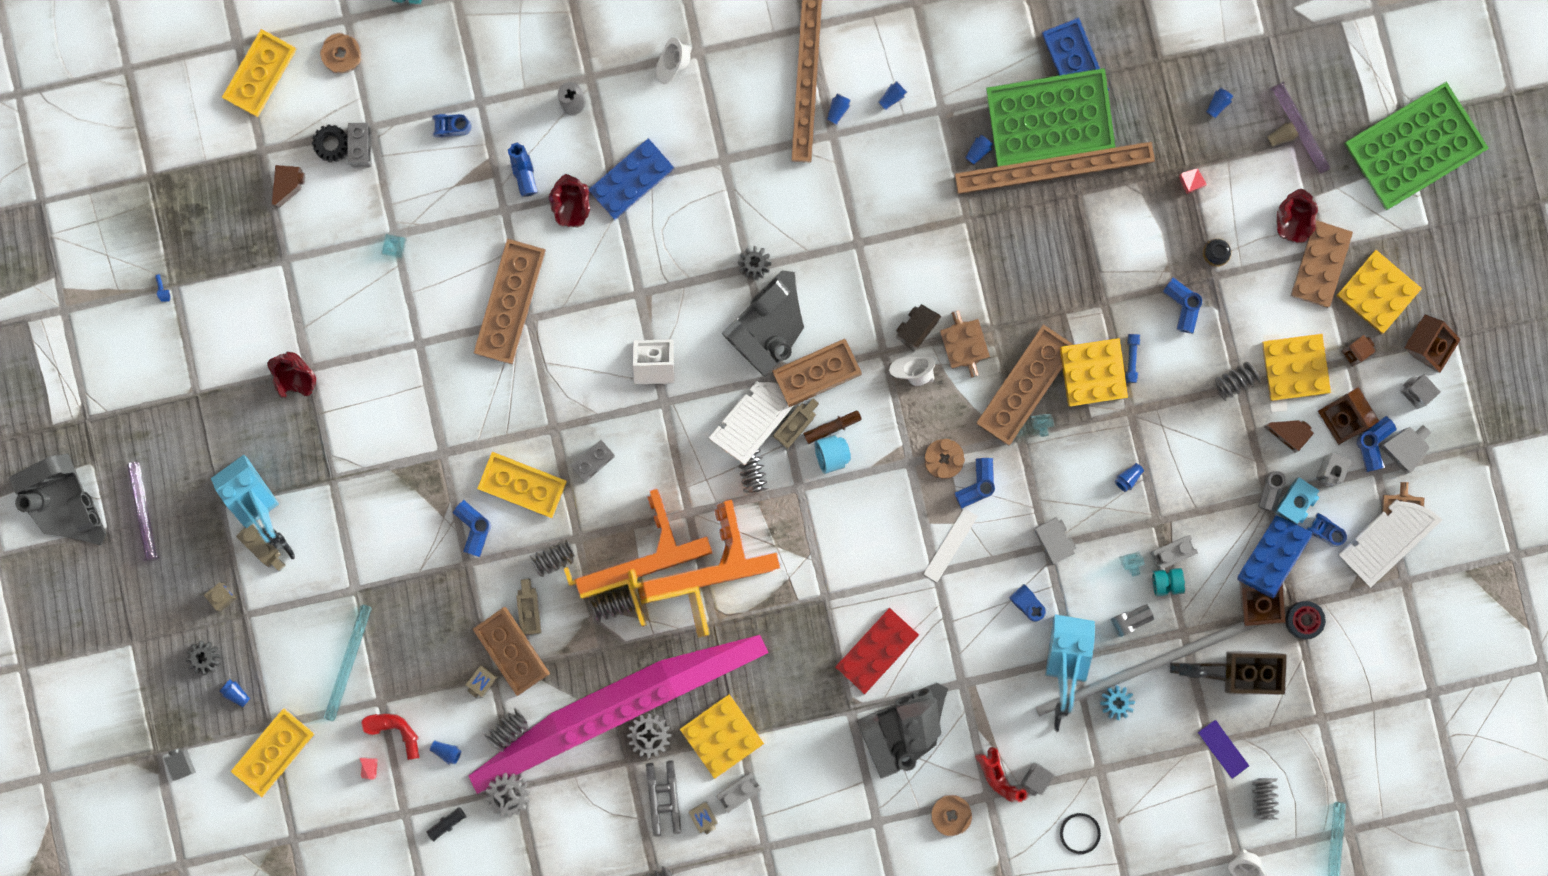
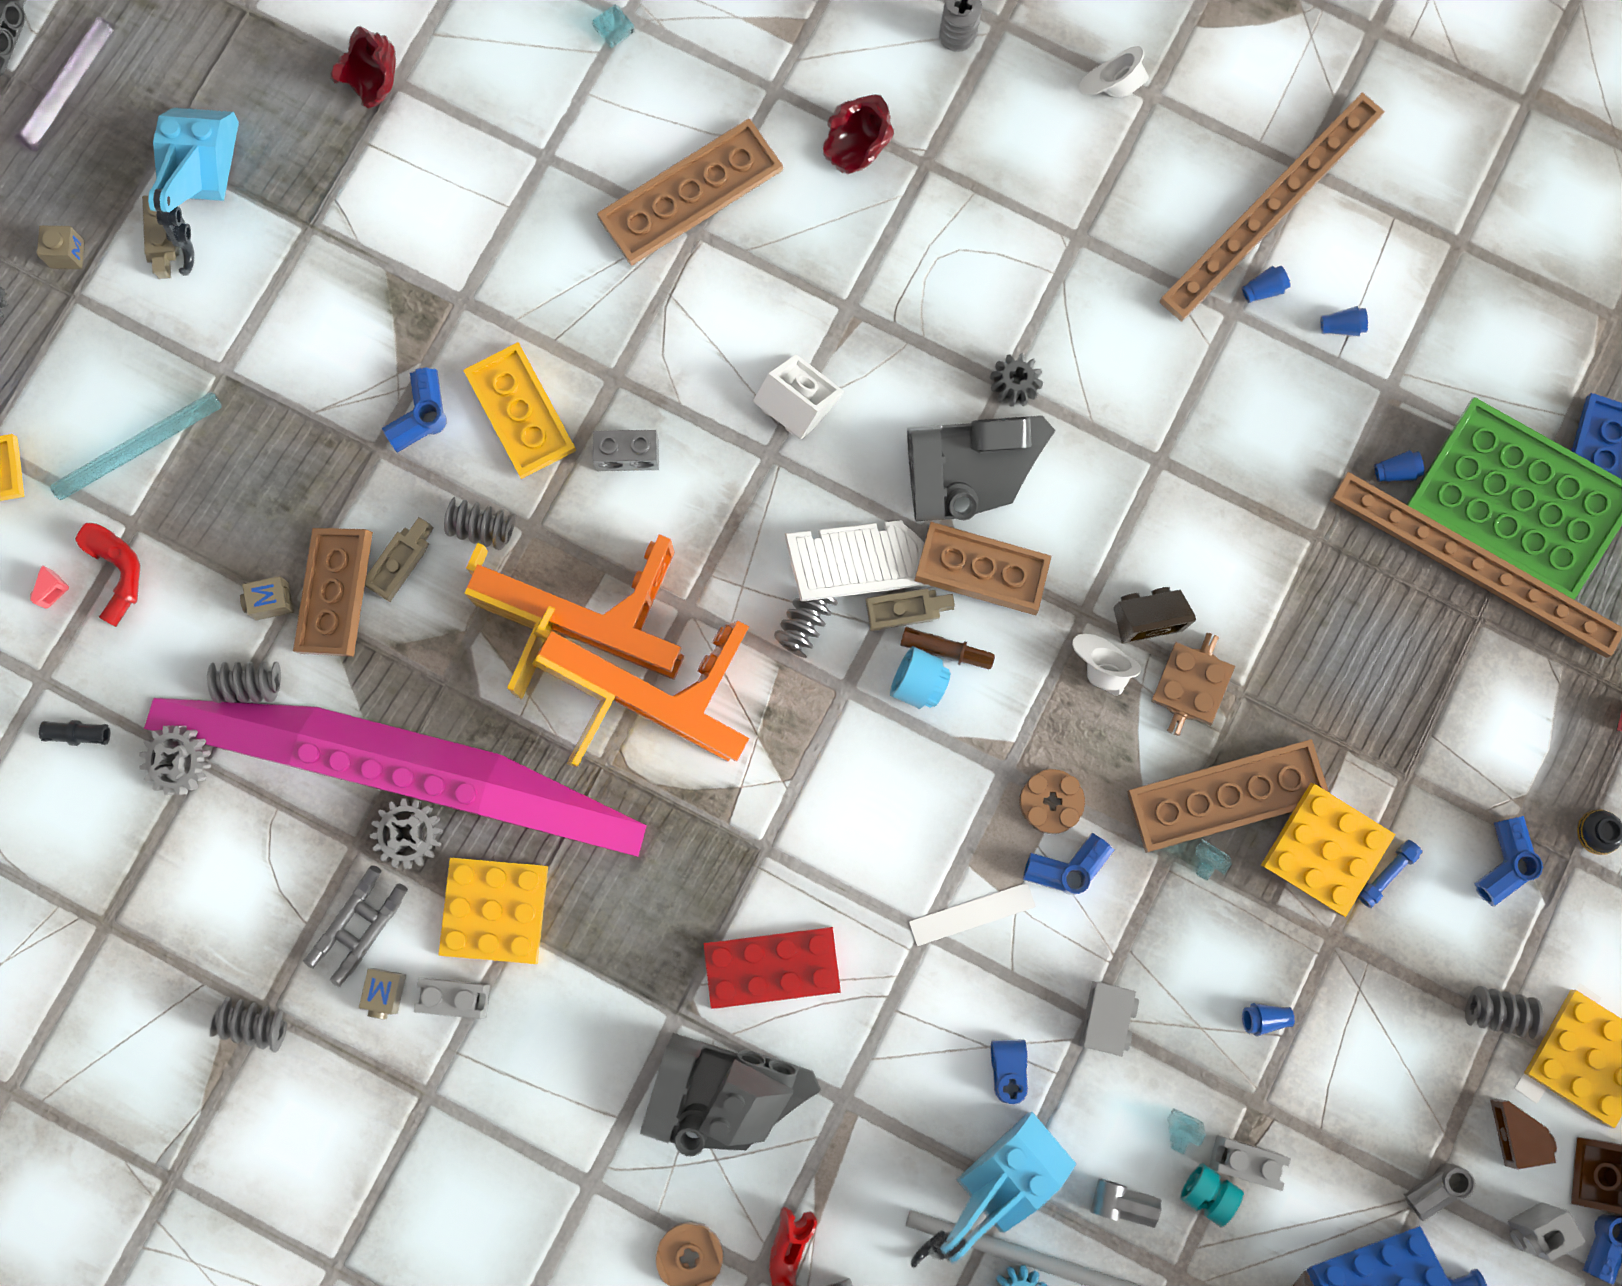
camera: 35 degrees right, 5 degrees down
(447, 752) = (152, 648): blue cone -> none
(522, 169) = (835, 54): blue piece -> none
(612, 605) = (496, 637): flat silver piece -> none
(631, 179) = (952, 171): blue plate -> none
(1300, 489) = (1482, 1229): medium azure brick -> none

